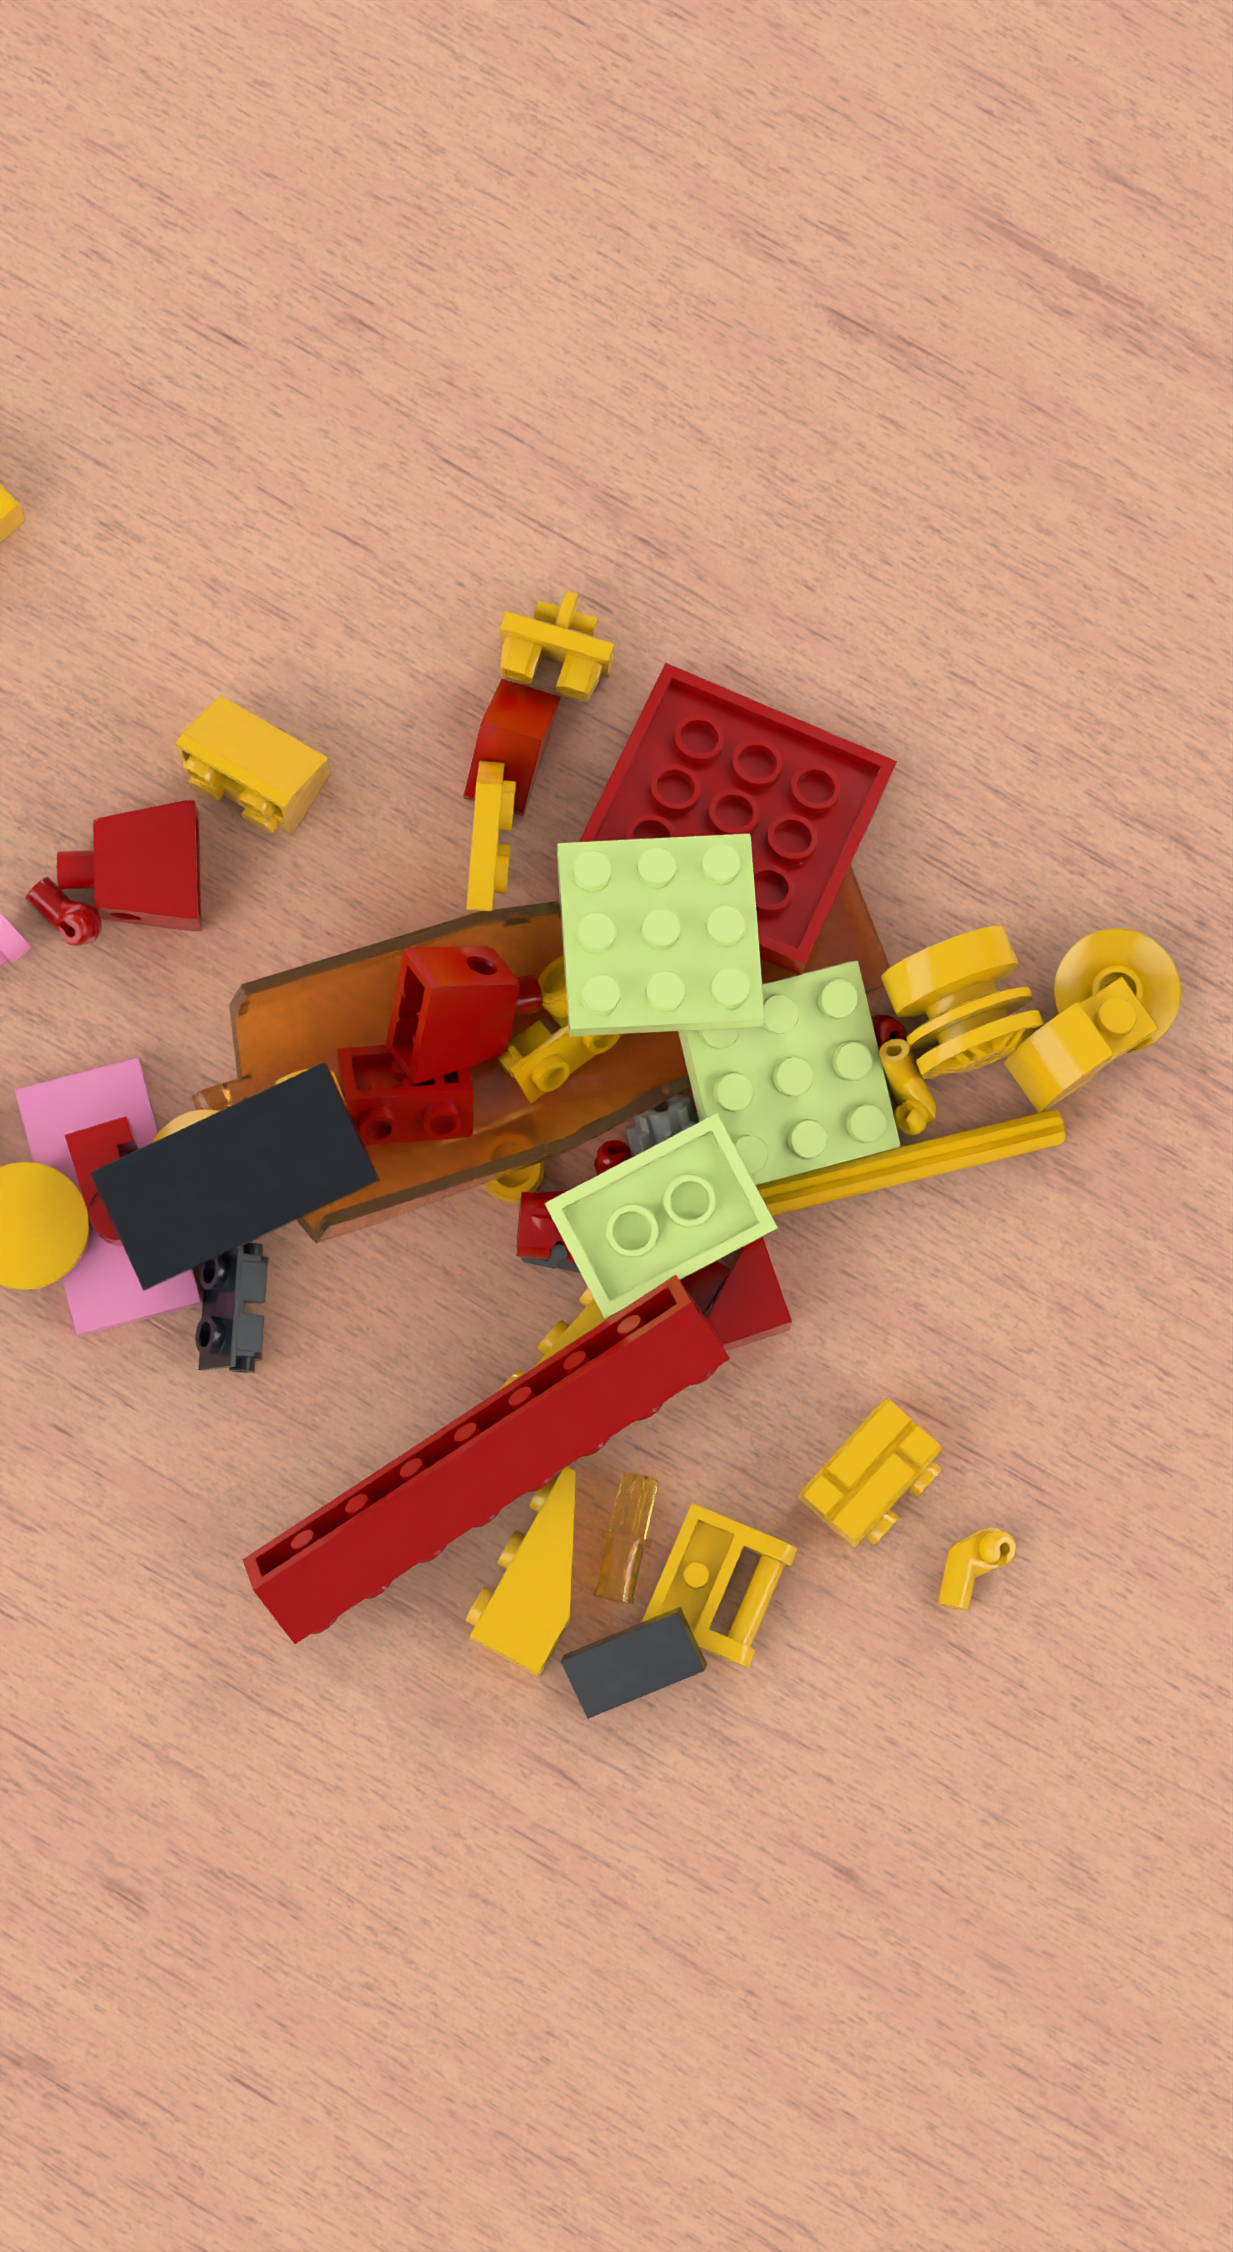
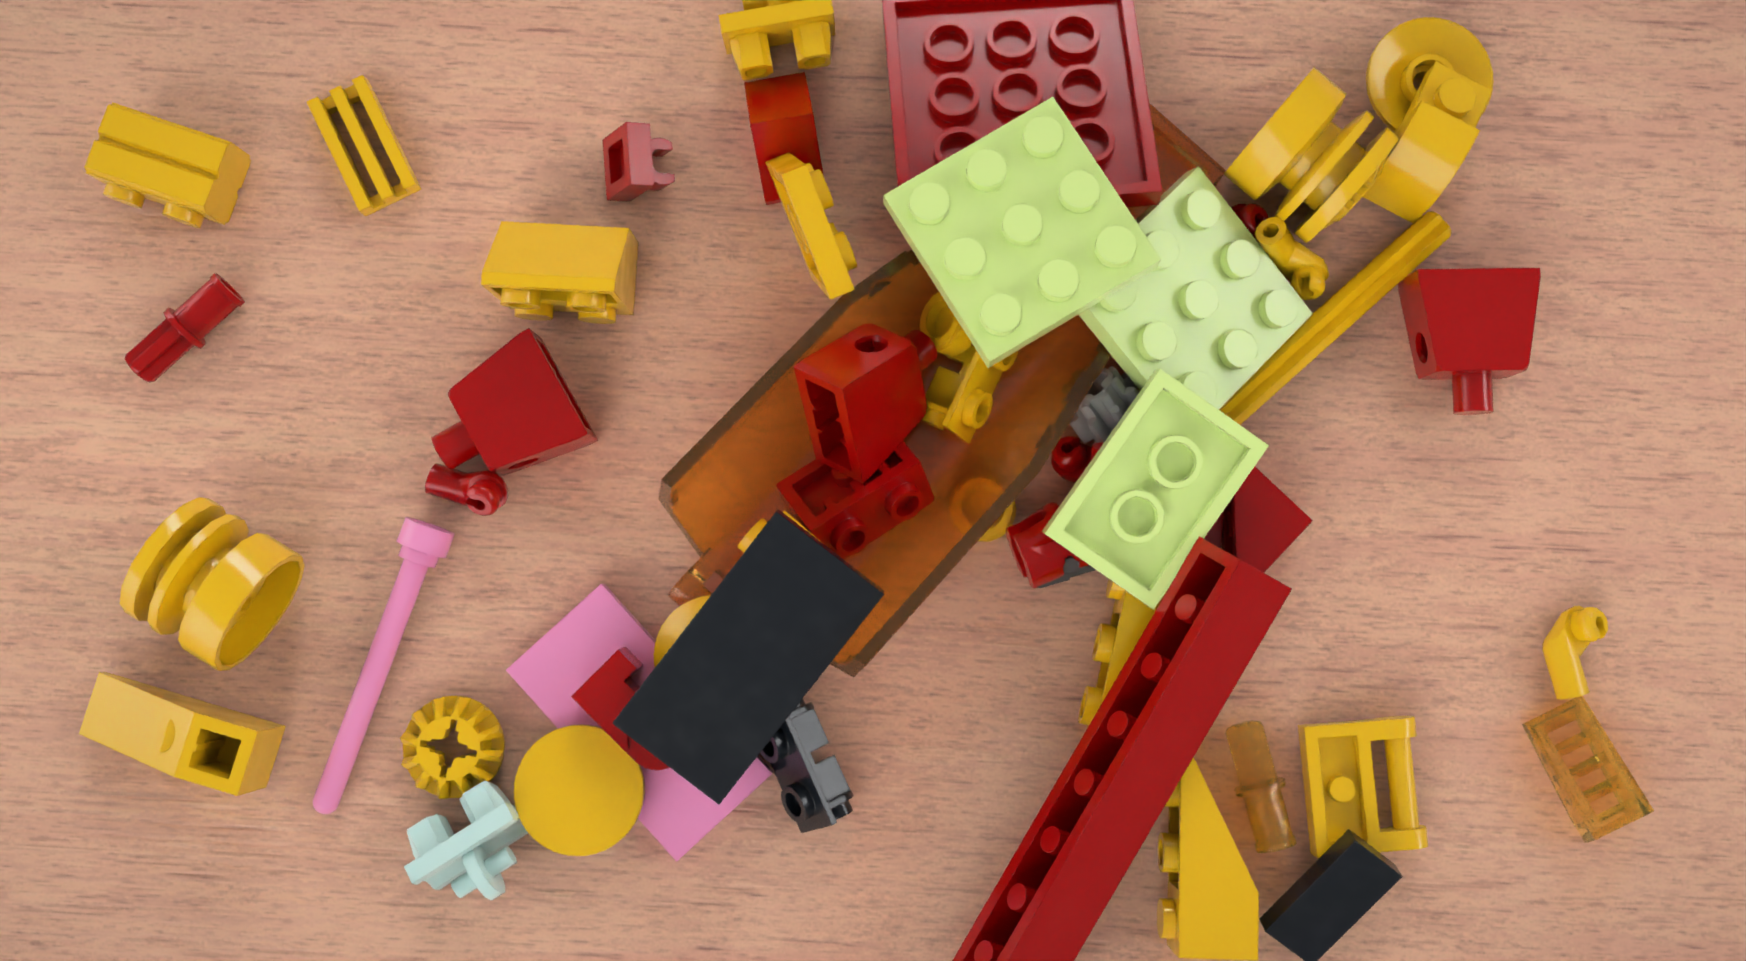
camera: 25 degrees left, 5 degrees up
(132, 510) = (342, 101): none -> yellow tile
(360, 698) = (630, 162): none -> red tile
(872, 1474) = (1447, 617): yellow brick -> none
(927, 1733) = (1576, 802): none -> clear yellow slope
(1032, 1231) = (1470, 328): none -> red torso

